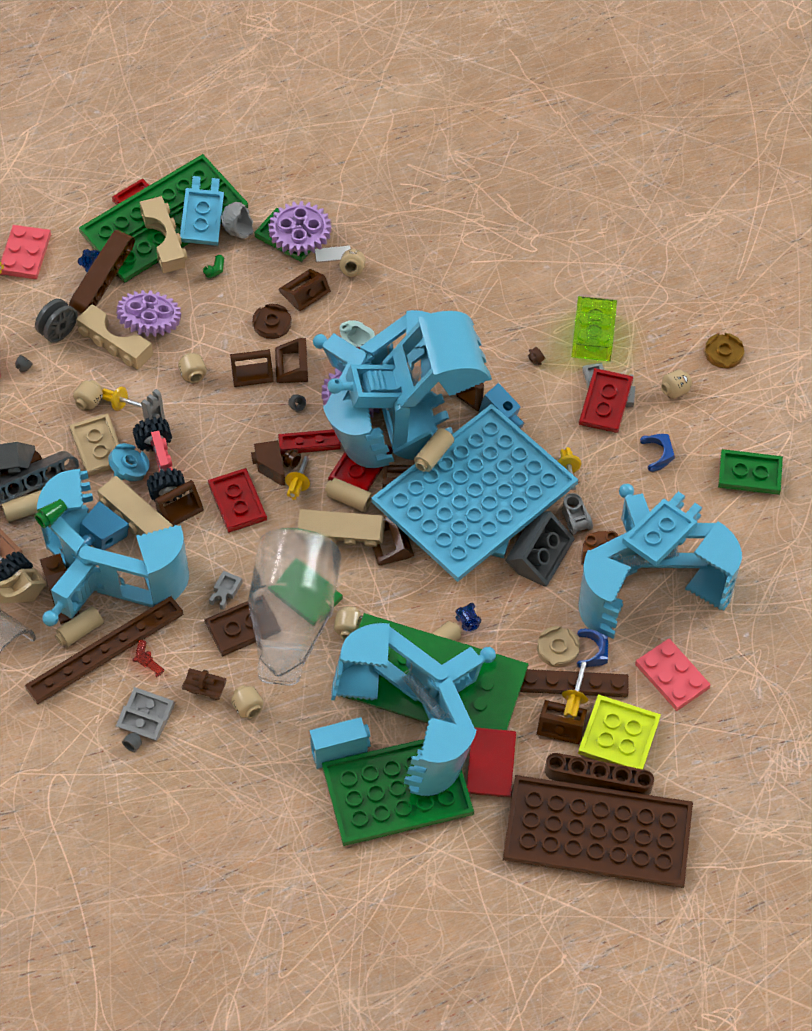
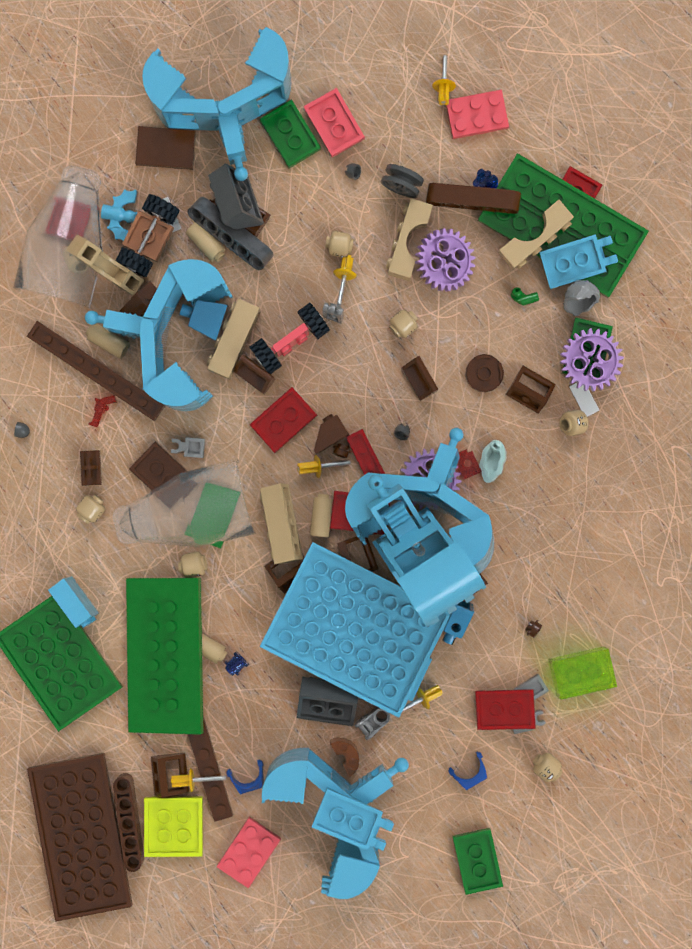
camera: 70 degrees right, 30 degrees up
(50, 513) = (167, 278): green cone -> none
(94, 442) = (294, 274): tan tile -> none
(124, 470) = (270, 307): medium azure plate -> none
(145, 714) = (51, 429): light grey slope -> none
(296, 375) = (446, 420): reddish brown tile -> none
(433, 450) = (376, 581): tan brick -> none
(434, 685) = (72, 696): medium azure piece -> none
(491, 762) = (108, 730): red tile -> none
(558, 646) = (240, 747): tan tile -> none
(724, 350) = (606, 797): pearl gold tile -> none

